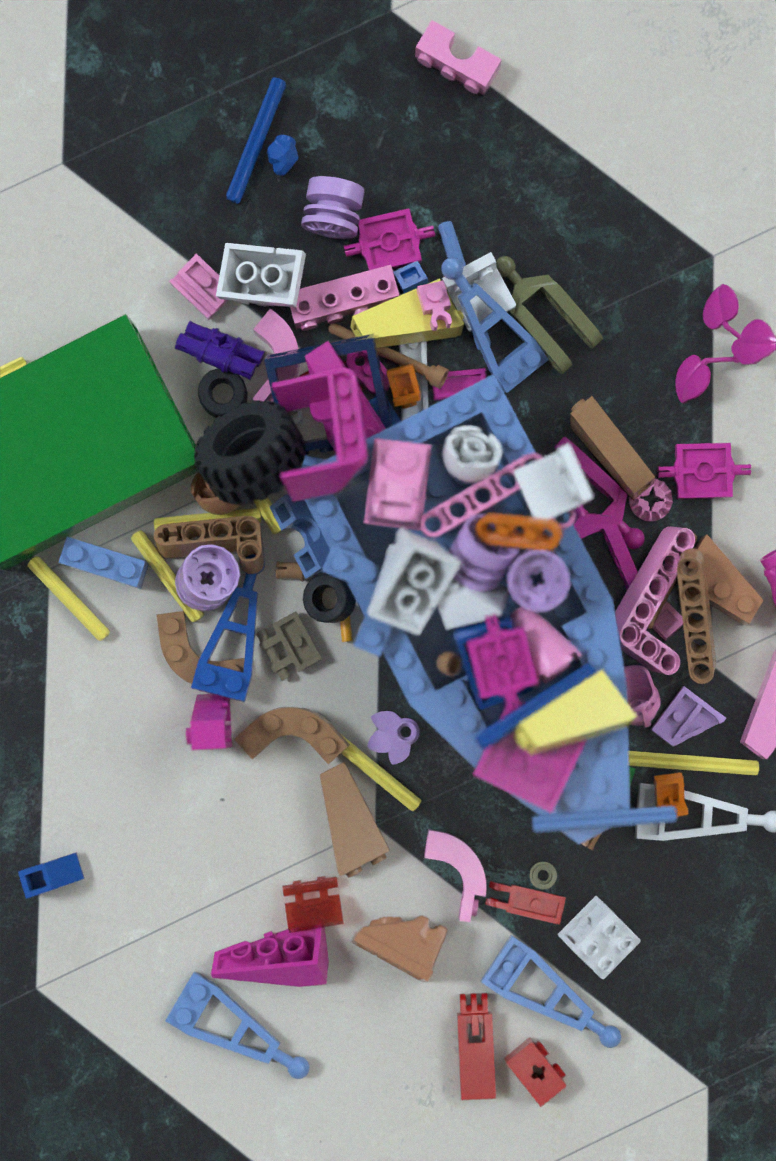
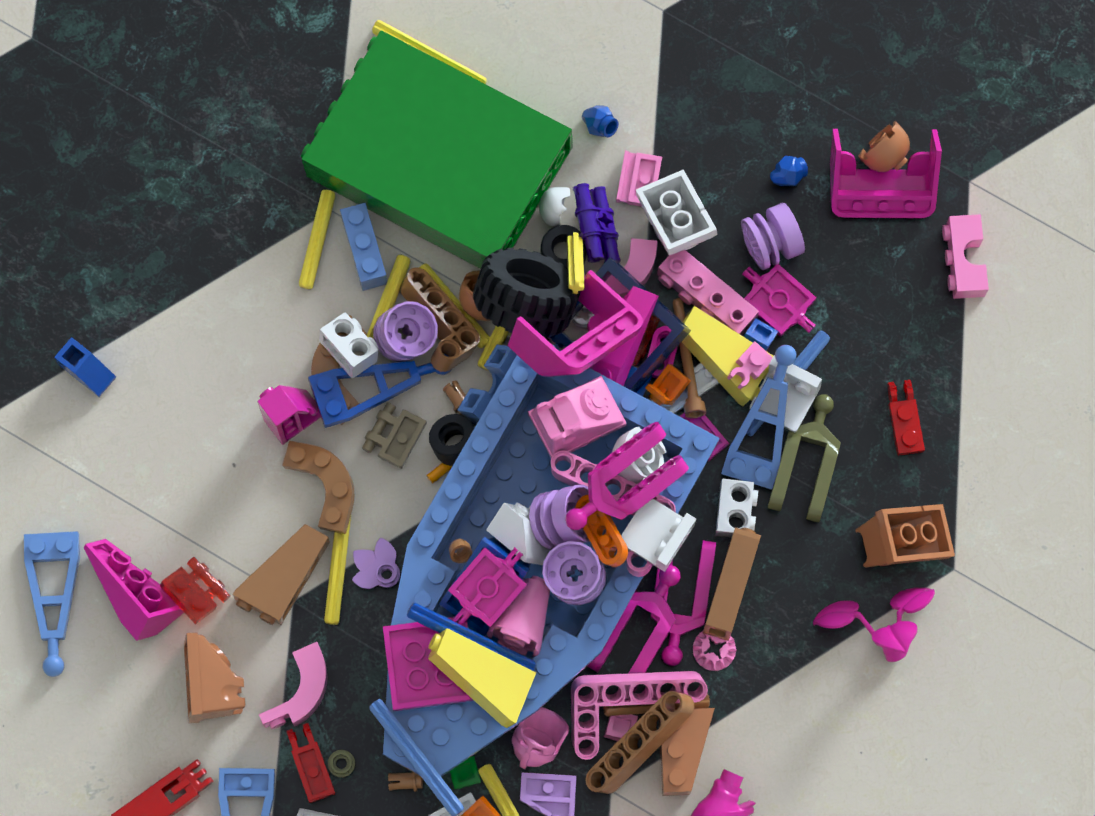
camera: 55 degrees right, 10 degrees down
(127, 284) = (600, 121): none -> blue rock
(176, 376) = (552, 204): none -> white hair
(186, 641) = (344, 347): none -> white brick
(250, 392) = (575, 263): none -> light yellow axle
(256, 140) = (784, 144): blue axle -> none
(320, 58) = (887, 149): none -> nougat cylinder
(355, 84) = (884, 194): none -> dark pink windscreen
(364, 576) = (477, 459): medium blue plate -> none
(412, 581) = (504, 474): white piece -> none
(474, 477) = (639, 495): none -> dark pink piece
(541, 407) = (730, 508): none -> white brick
(562, 207) = (905, 420): none -> red hinge
(668, 276) = (906, 536): none -> nougat piece
(704, 470) = (767, 676): dark pink plate -> none

